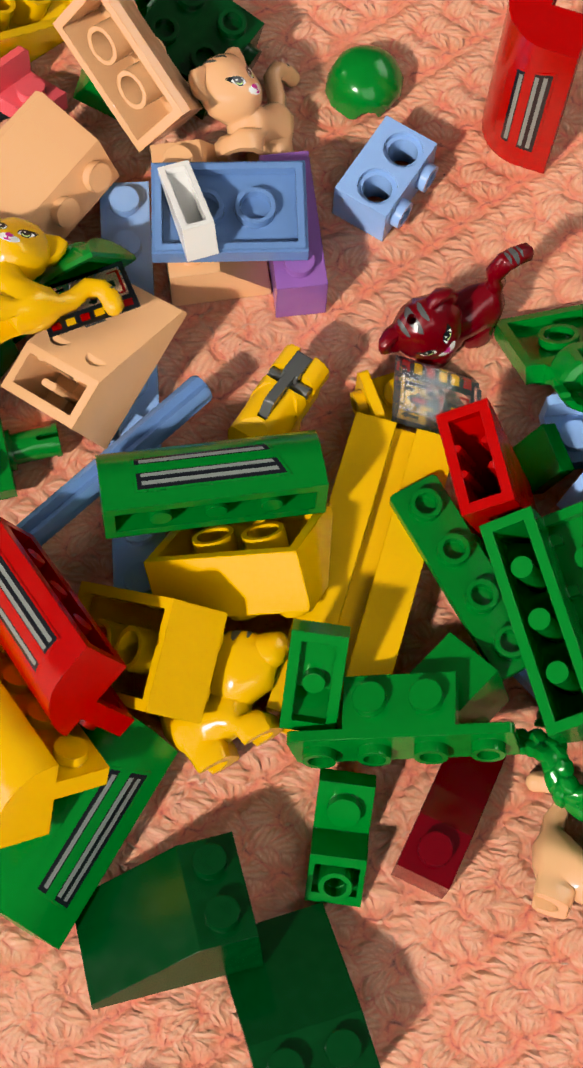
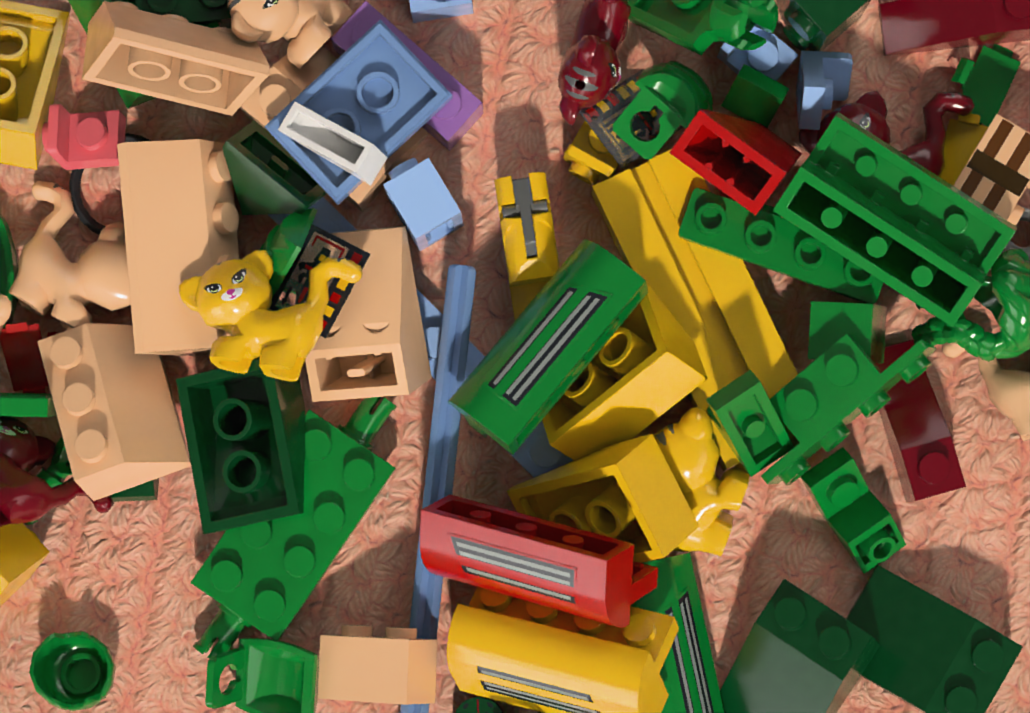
camera: 35 degrees left, 15 degrees up
(123, 207) = (267, 175): none -> dark green slope
(217, 319) = (422, 202): none -> light blue brick
(472, 385) = (676, 92): none -> green piece

